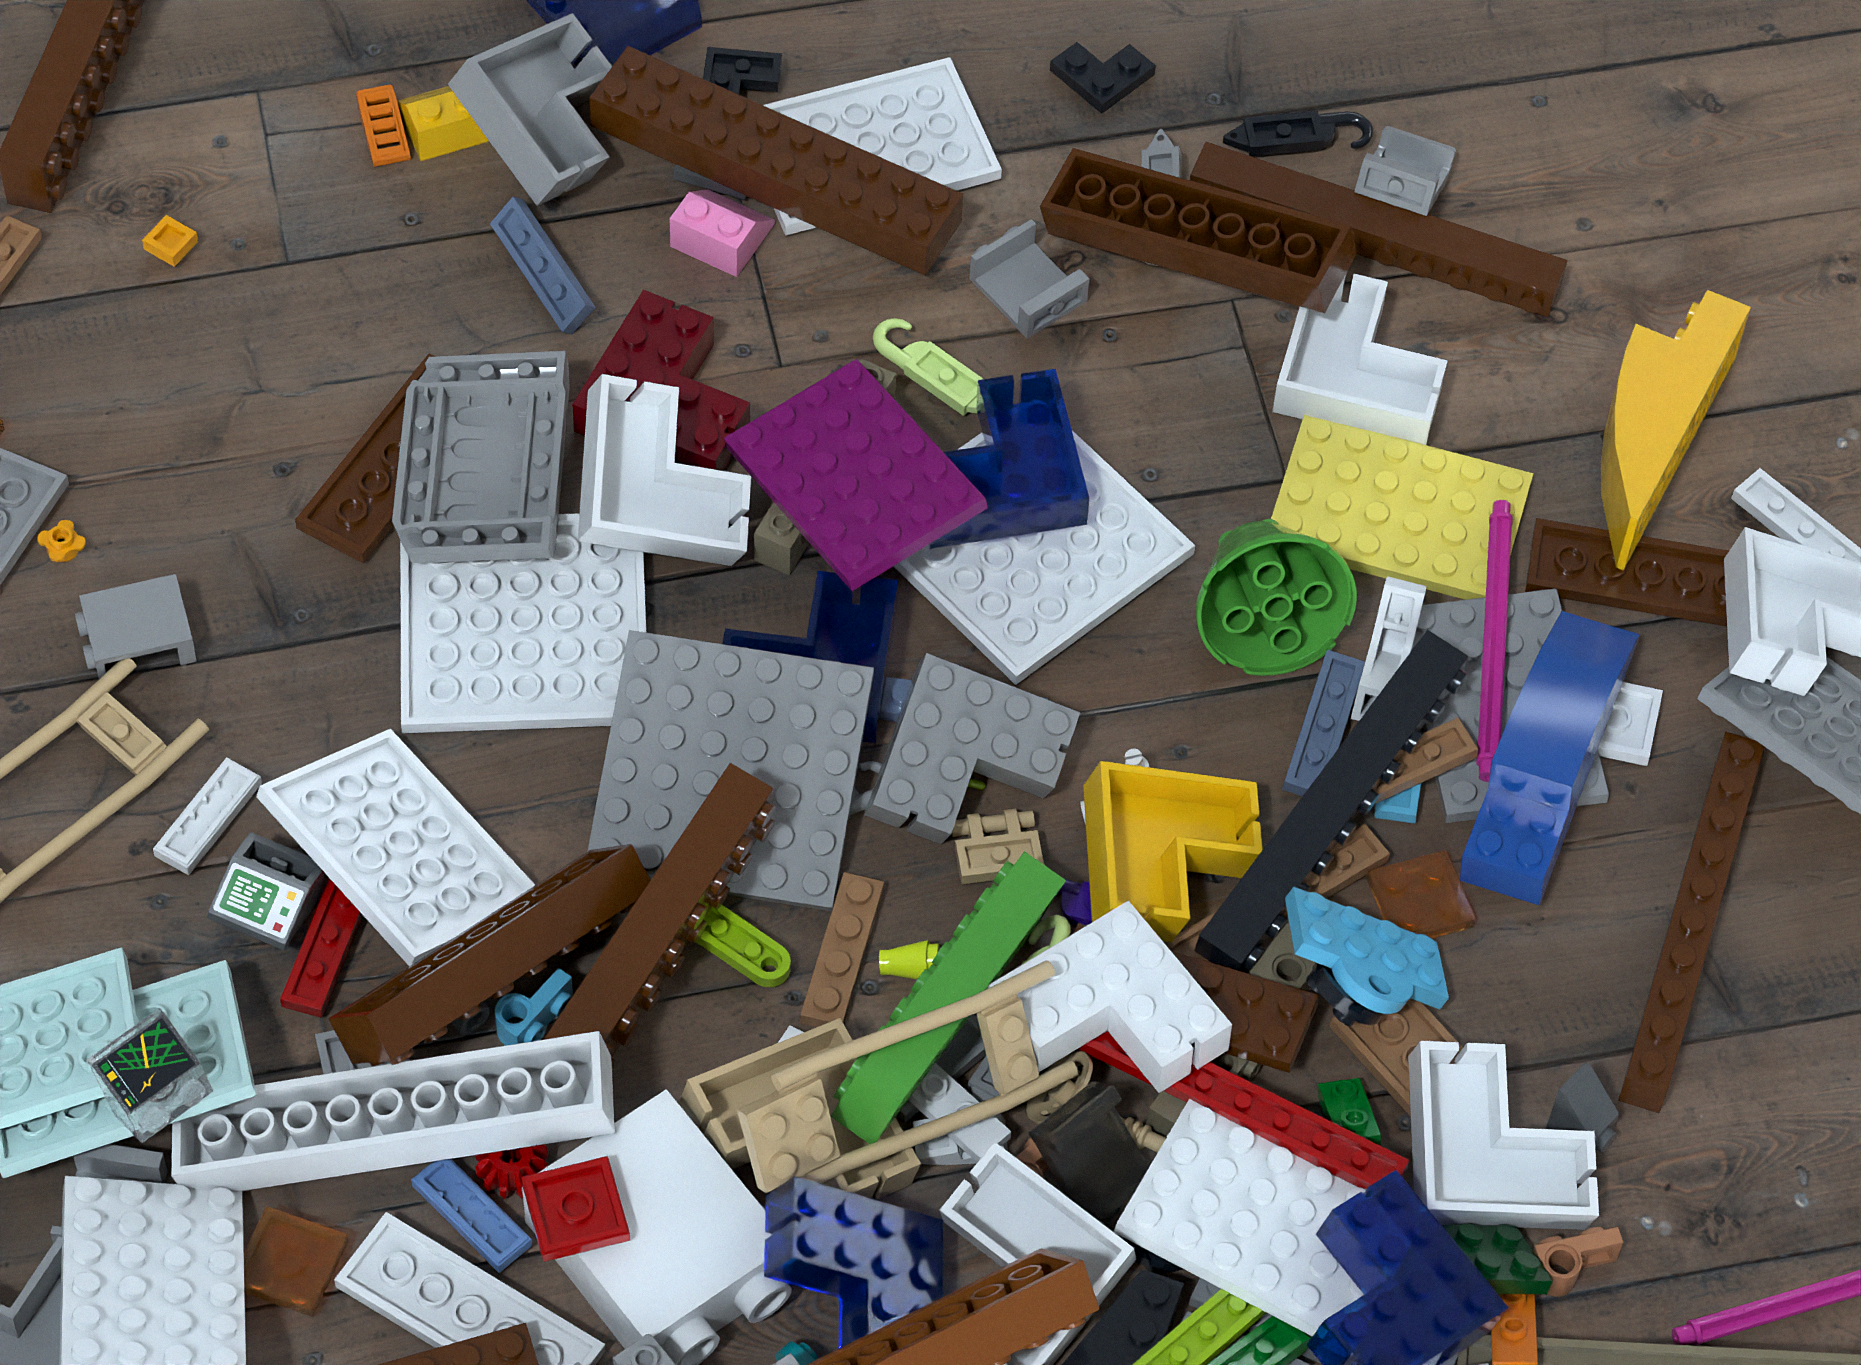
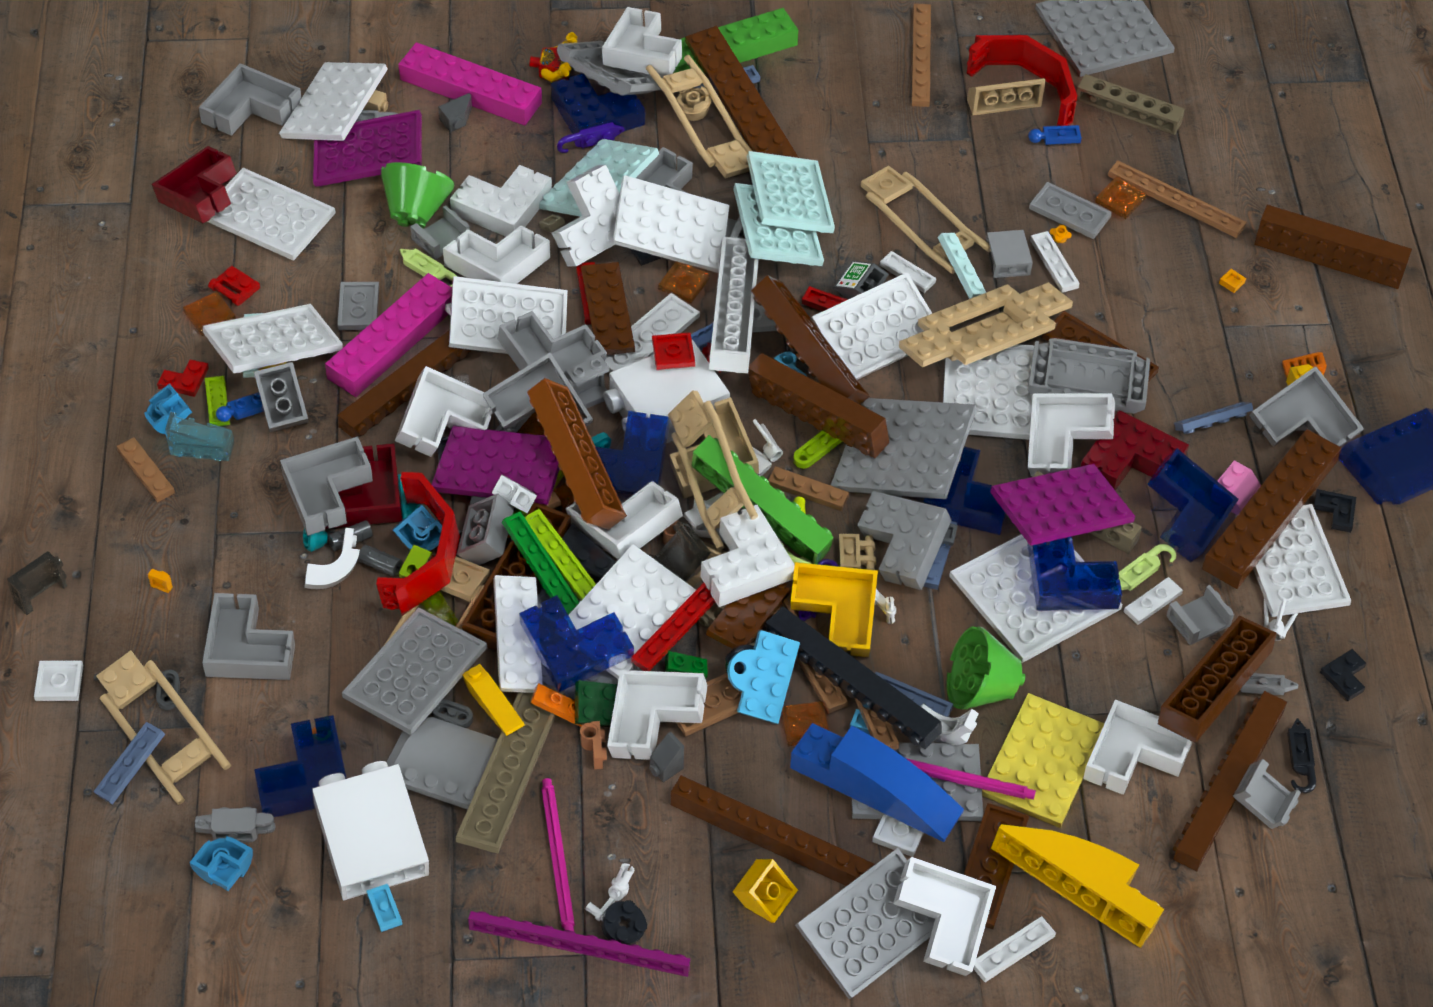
camera: 100 degrees right, 5 degrees down
(148, 546) = (1054, 261): none -> white plate
(149, 1076) = (757, 214): slope -> none
(191, 705) = (961, 264): none -> light aqua plate
(359, 659) = (1022, 319): none -> tan piece
(755, 1026) = (771, 449): none -> white plant
(793, 268) = (1199, 500): none -> clear blue piece
(995, 347) = (1153, 601): none -> white plate
(1033, 169) = (1277, 625): none -> white plant
(1808, 923) = (765, 889): none -> yellow slope

